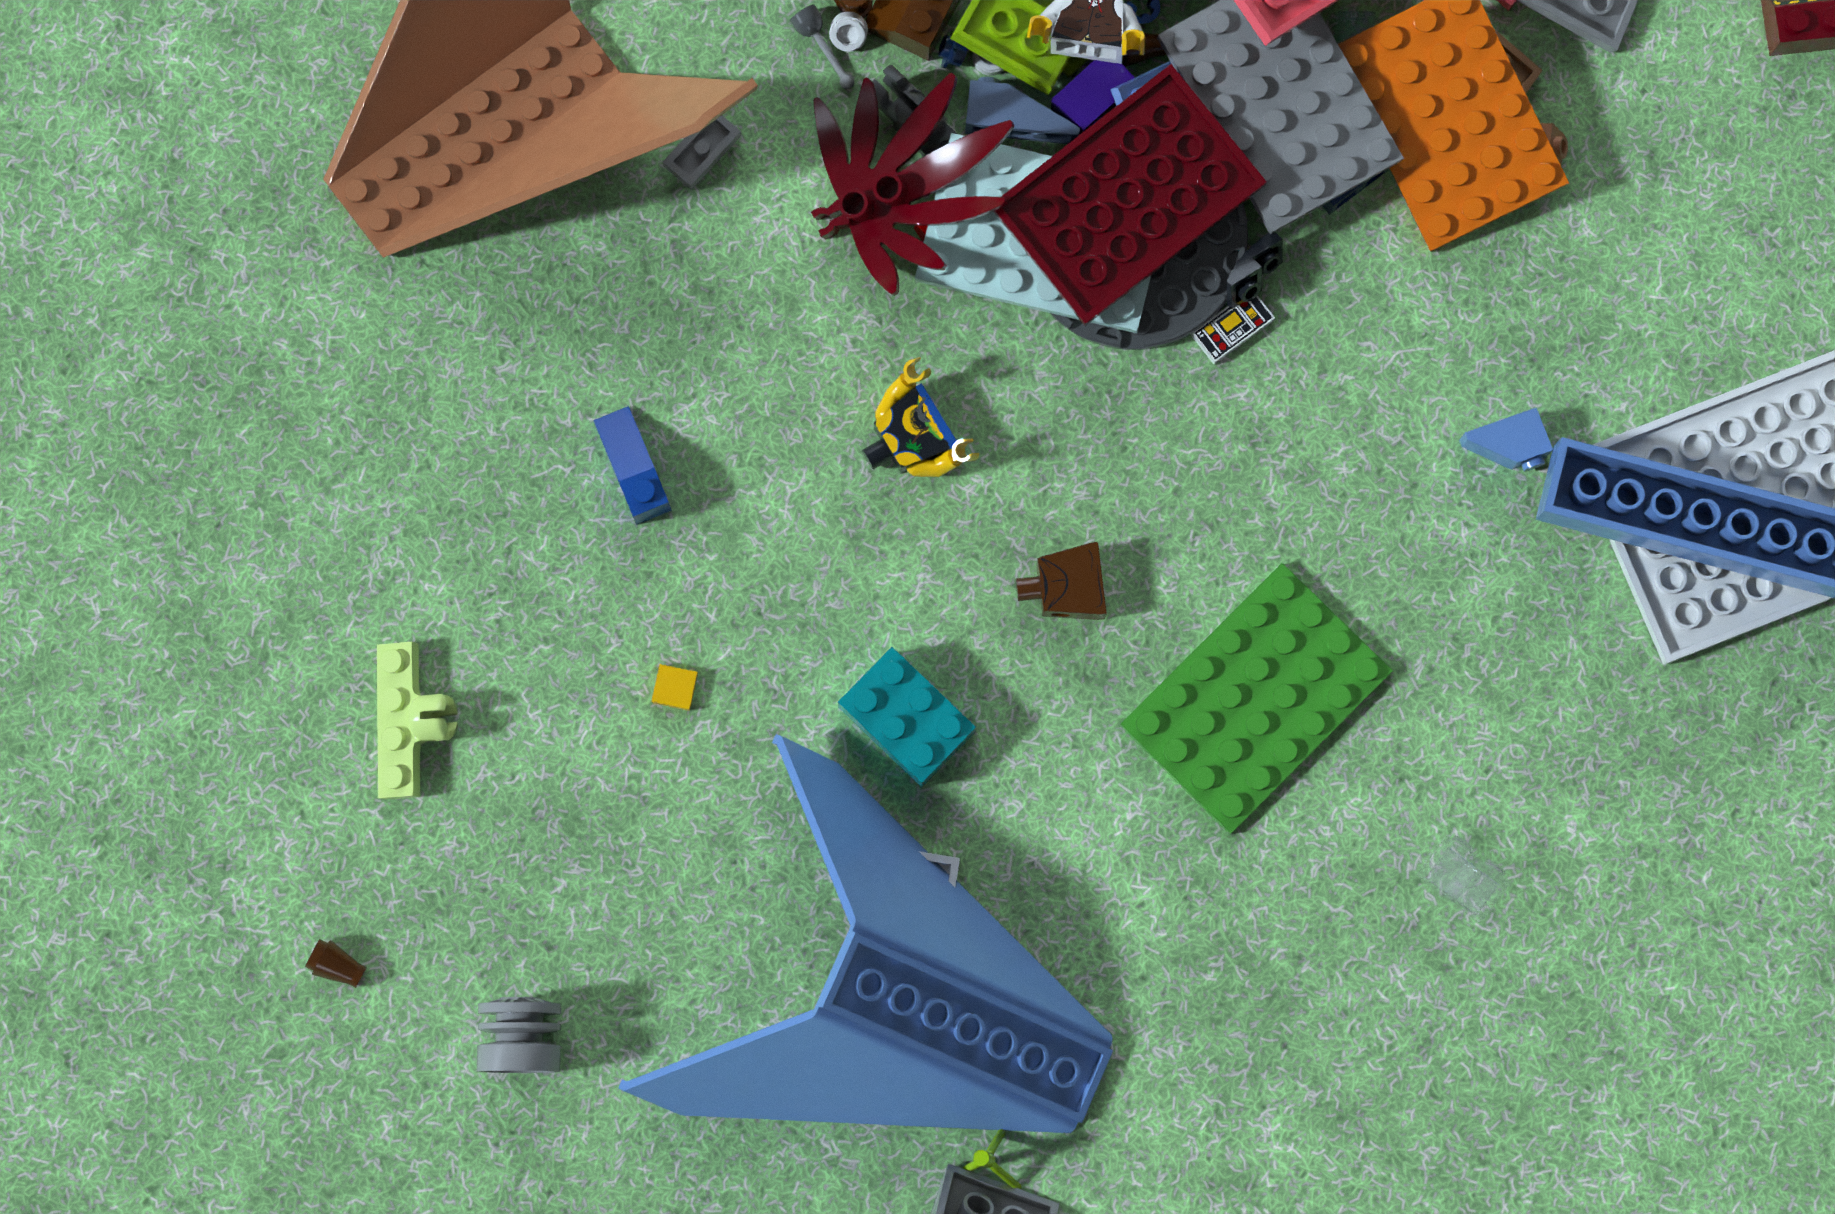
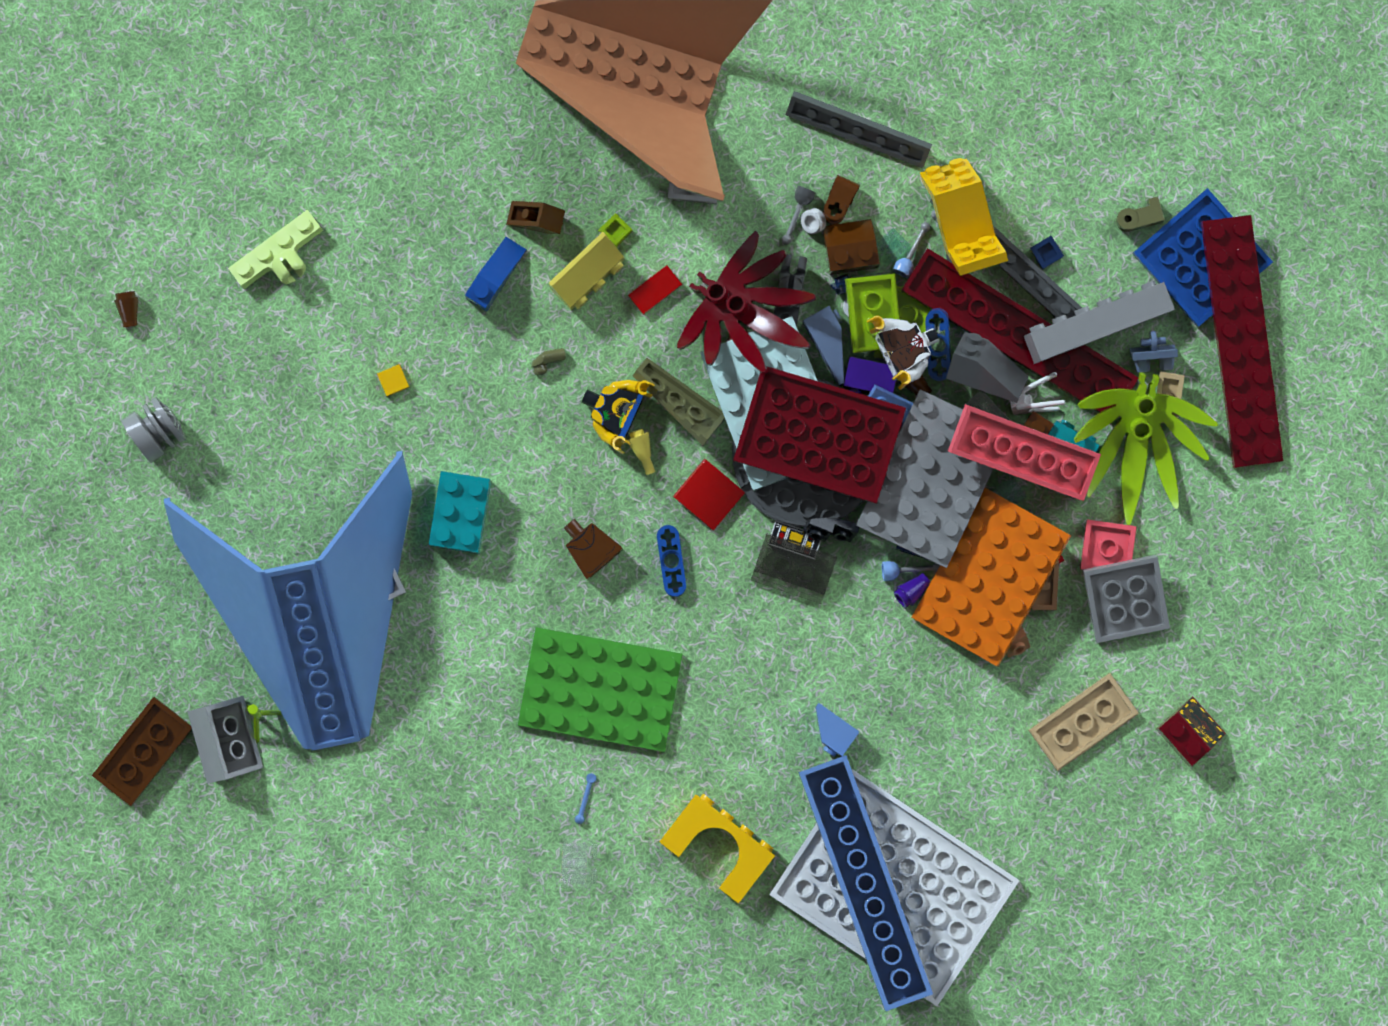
camera: 60 degrees right, 5 degrees up
(596, 363) = (536, 217): none -> reddish brown slope
(684, 280) = (616, 230): none -> lime tile
(714, 346) = (587, 272): none -> light yellow slope
(784, 475) = (545, 358): none -> olive arm
(794, 282) = (655, 289): none -> red tile
(966, 342) = (683, 403): none -> olive wing
(986, 434) = (641, 447): none -> light yellow cone
(1101, 392) = (708, 494): none -> red slope
(1151, 481) = (662, 543): none -> blue beam
(1269, 351) = (793, 568): none -> clear smoke tile
(1356, 231) = (891, 570): none -> hinge
(1362, 788) = (591, 778): none -> medium blue hinge
(1397, 227) = (911, 590): none -> dark purple cone
(1602, 650) = (701, 815): none -> yellow arch
(1703, 134) = (1083, 722): none -> tan tile

